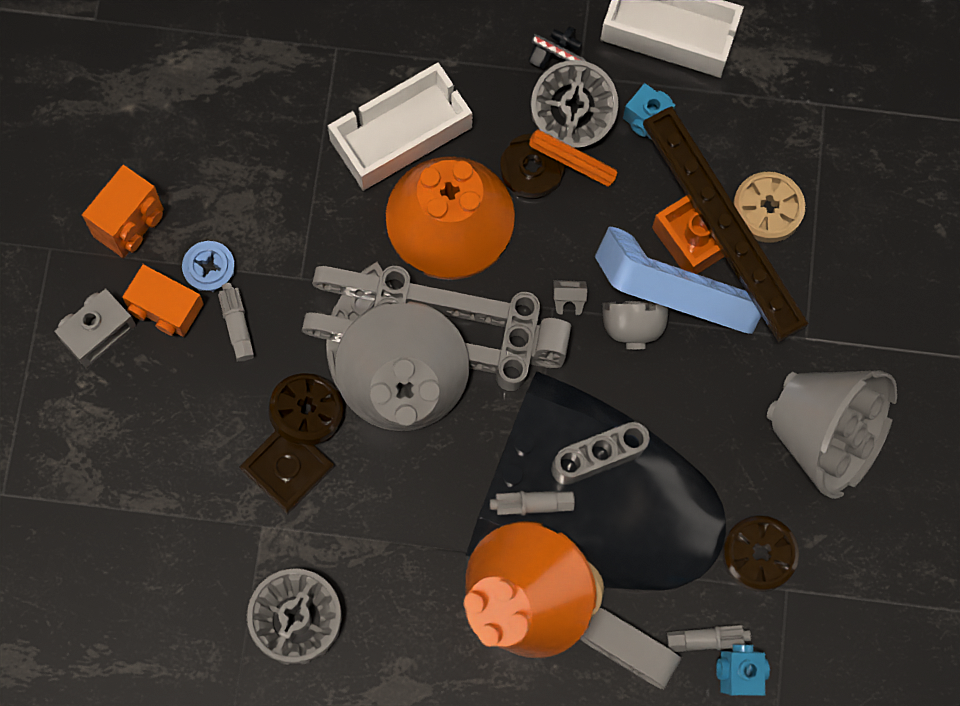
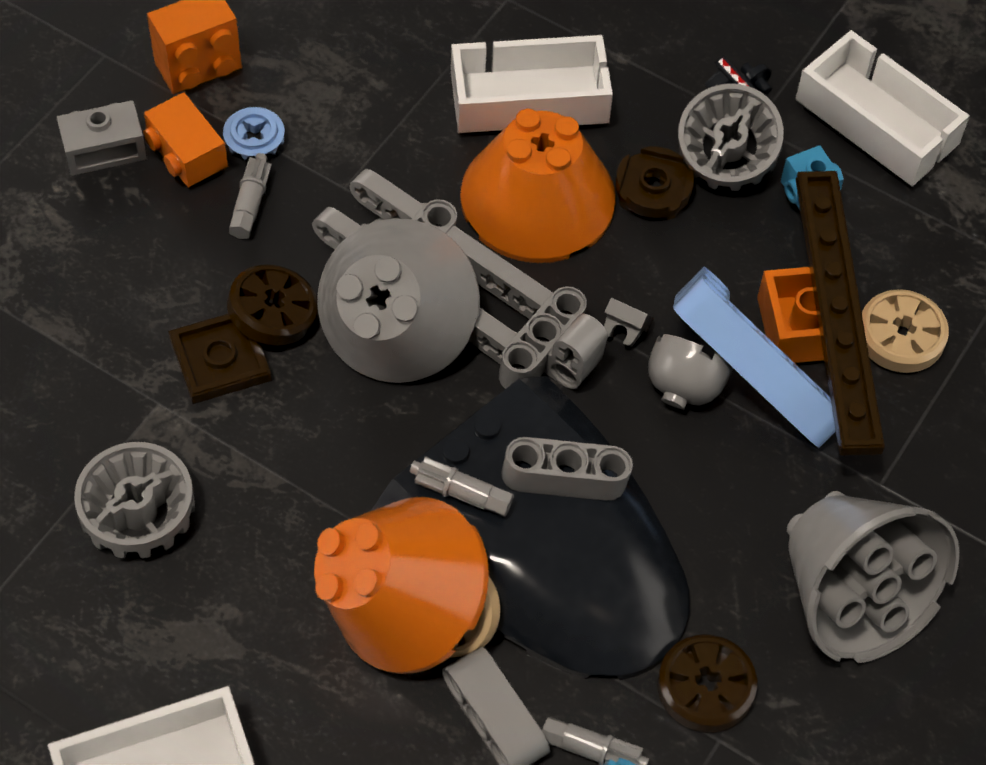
camera: 25 degrees right, 15 degrees down
(573, 157) = (702, 188): orange axle -> none

